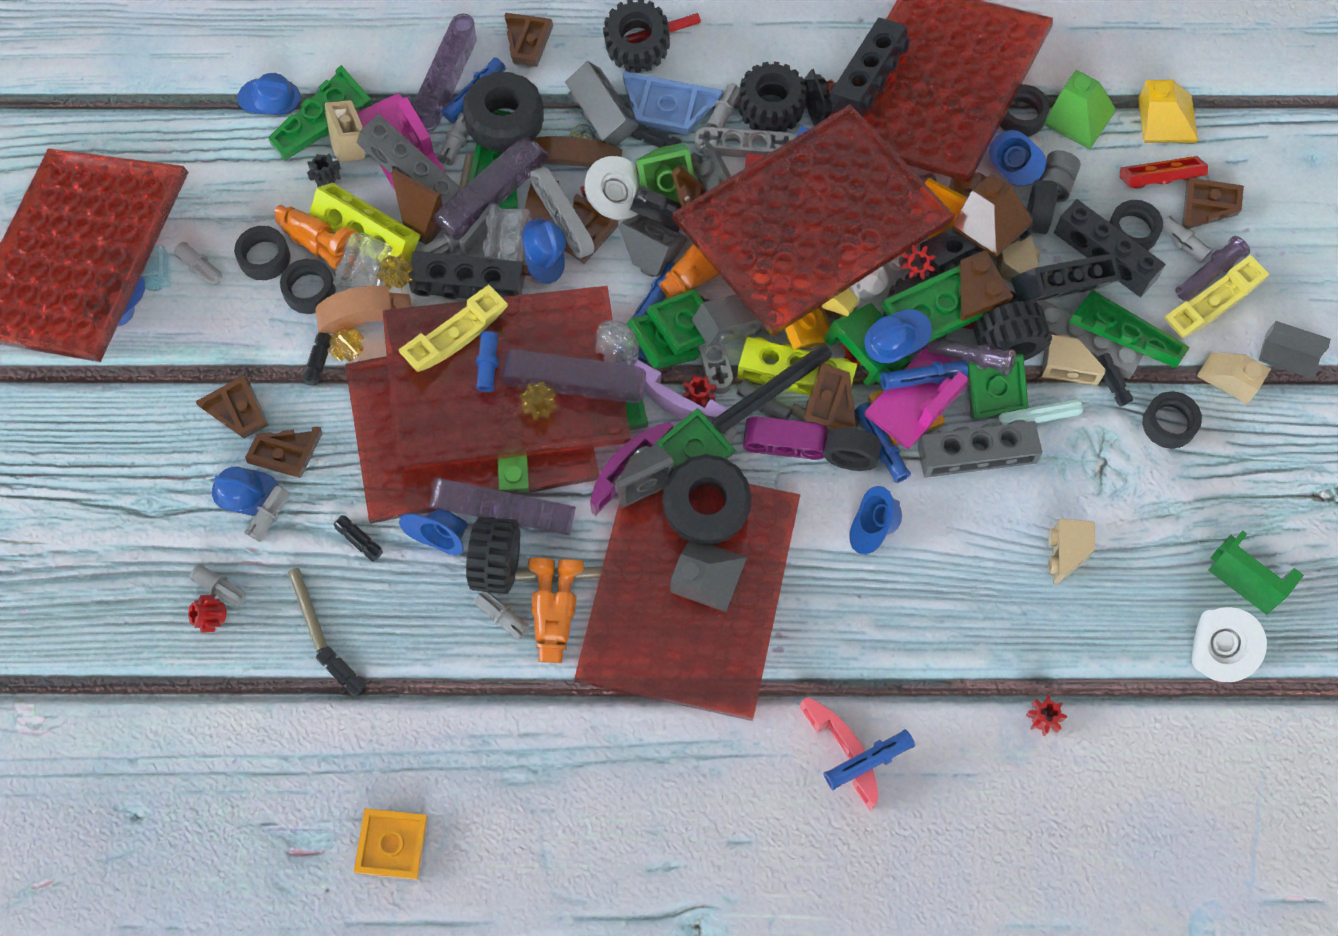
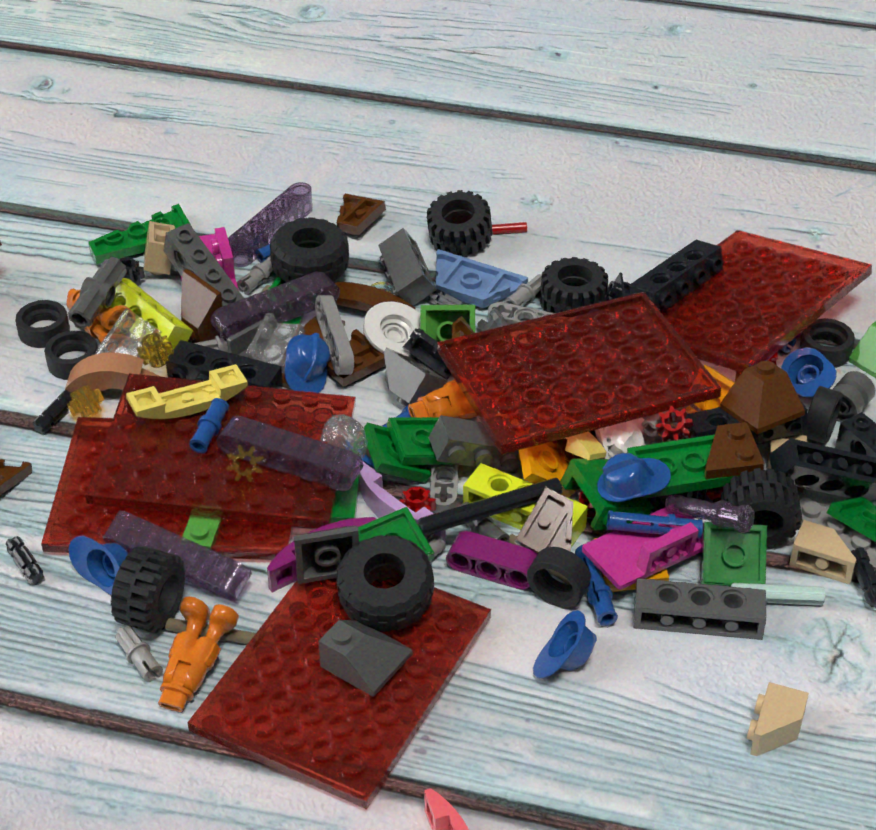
camera: 15 degrees right, 25 degrees down
(269, 95) = (105, 215): blue piece -> none
(315, 219) = (97, 292): none -> dark grey piece

